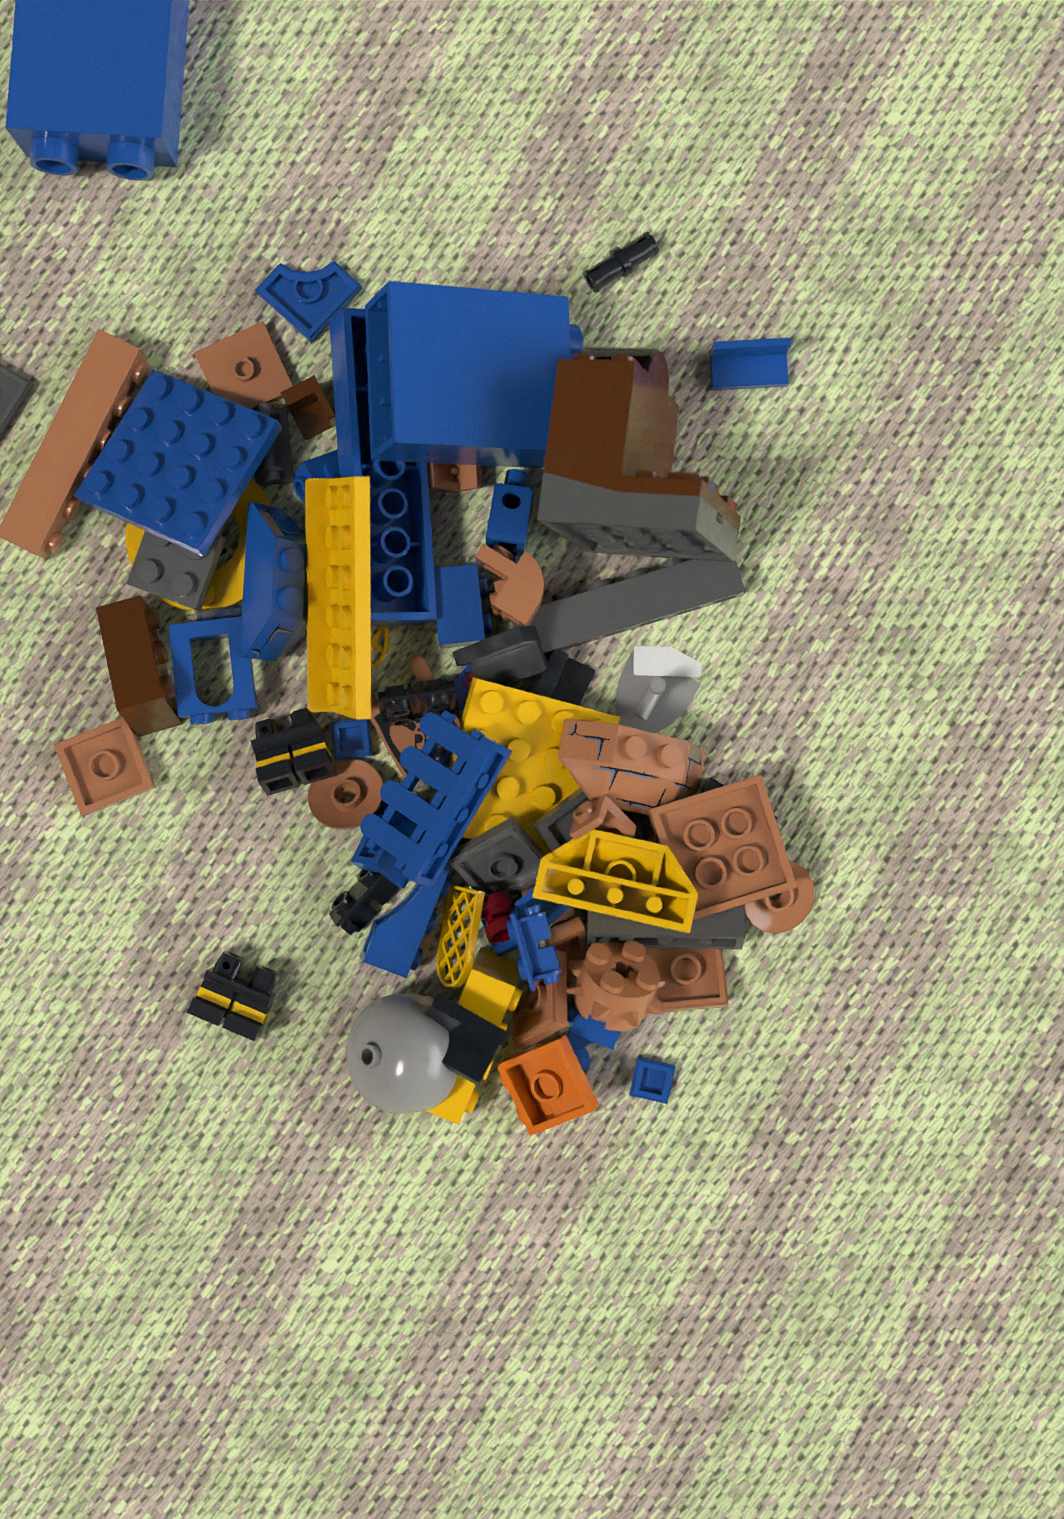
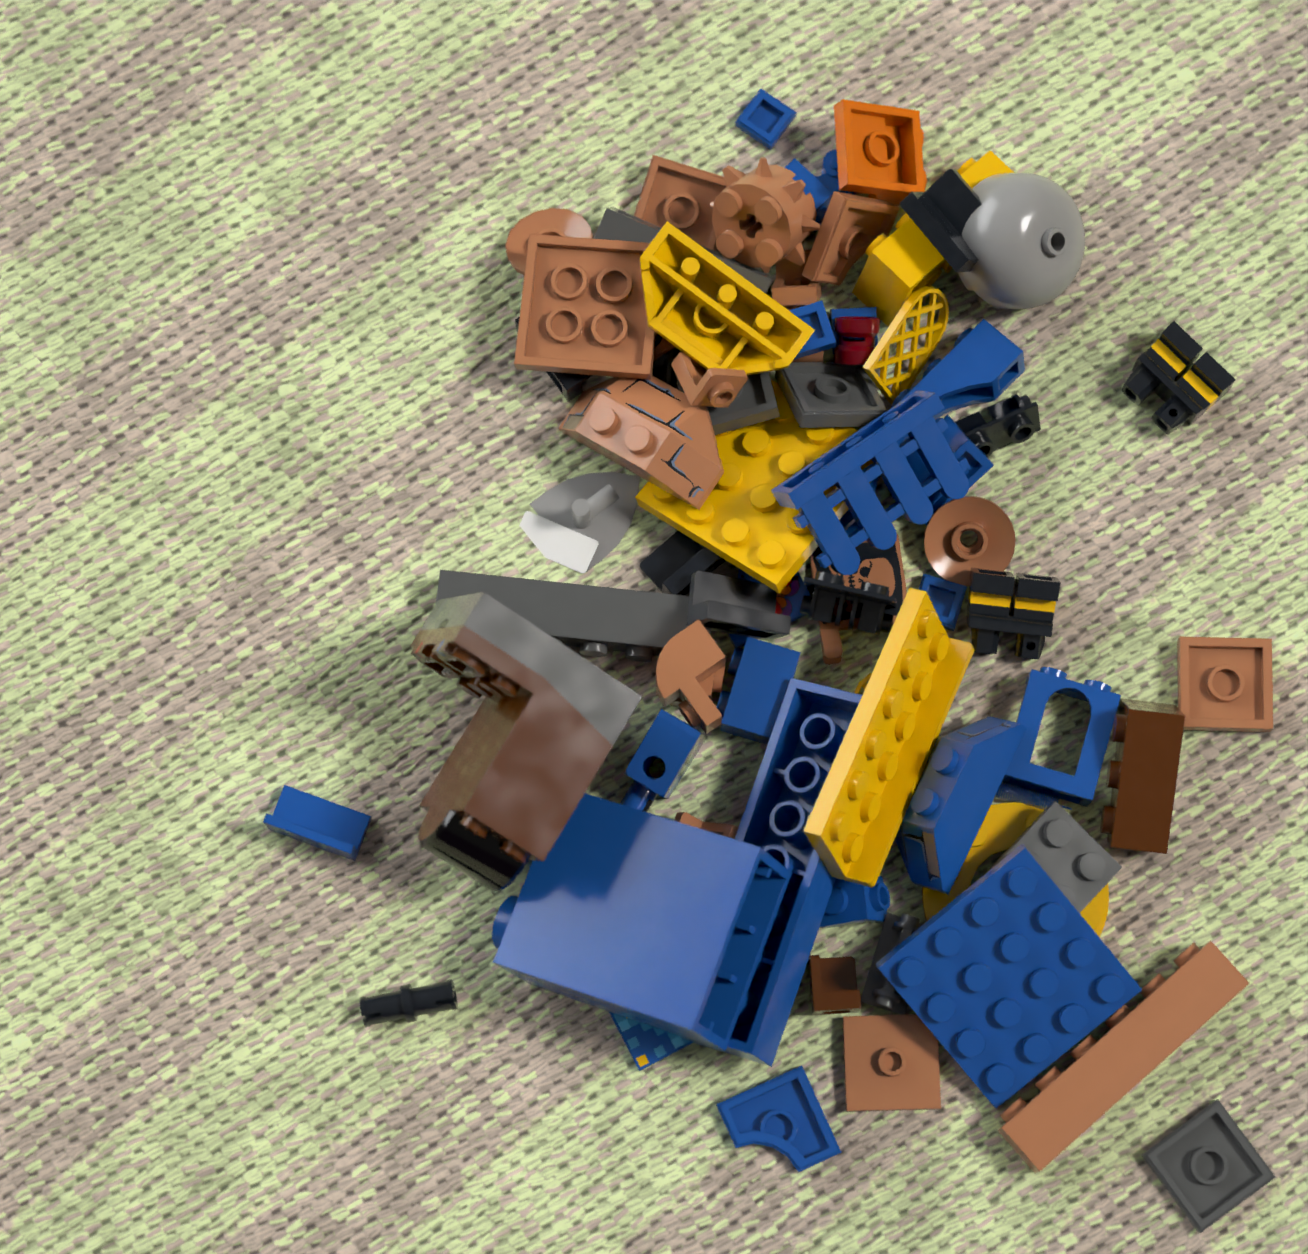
camera: 155 degrees left, 10 degrees down
(534, 961) = (833, 303): blue hinge -> none

